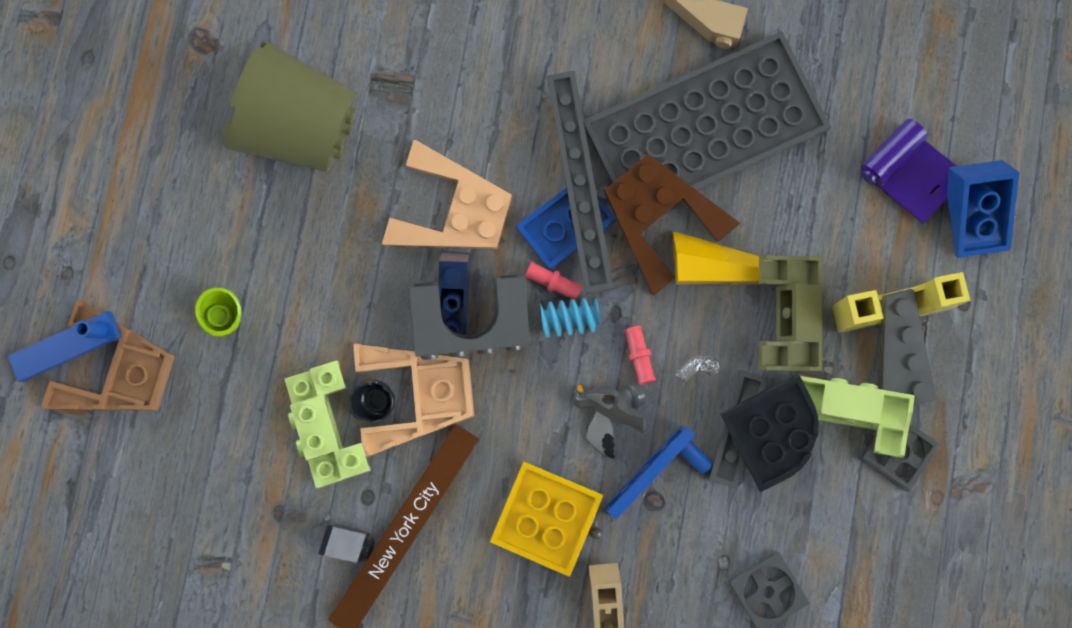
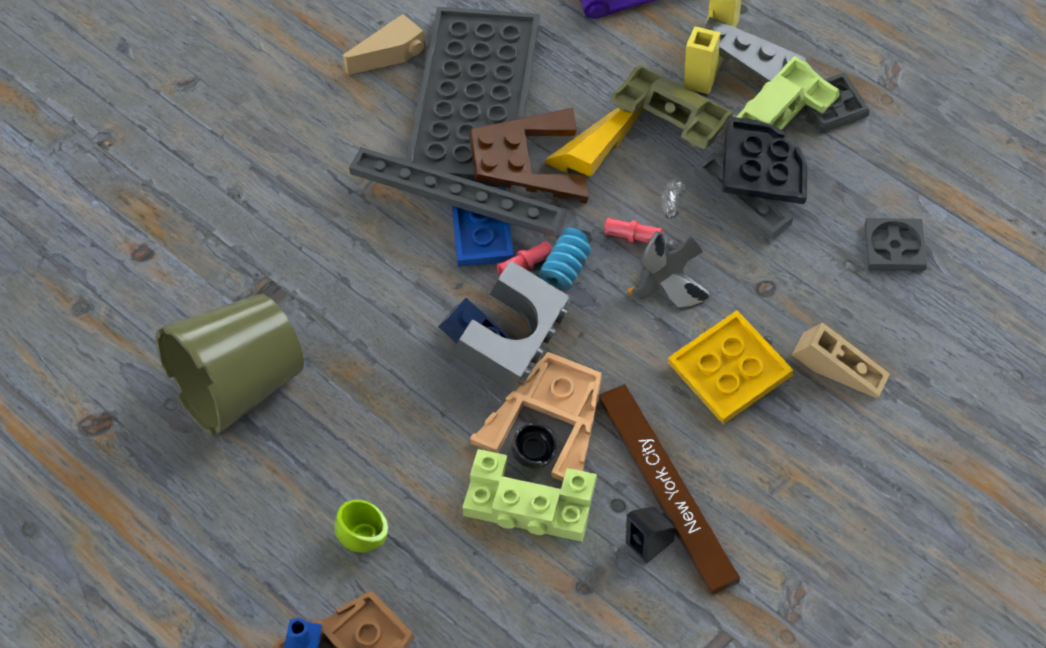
camera: 60 degrees left, 25 degrees down
(474, 215) = (419, 287): light nougat wing -> none
(678, 442) = (728, 246): blue piece -> none

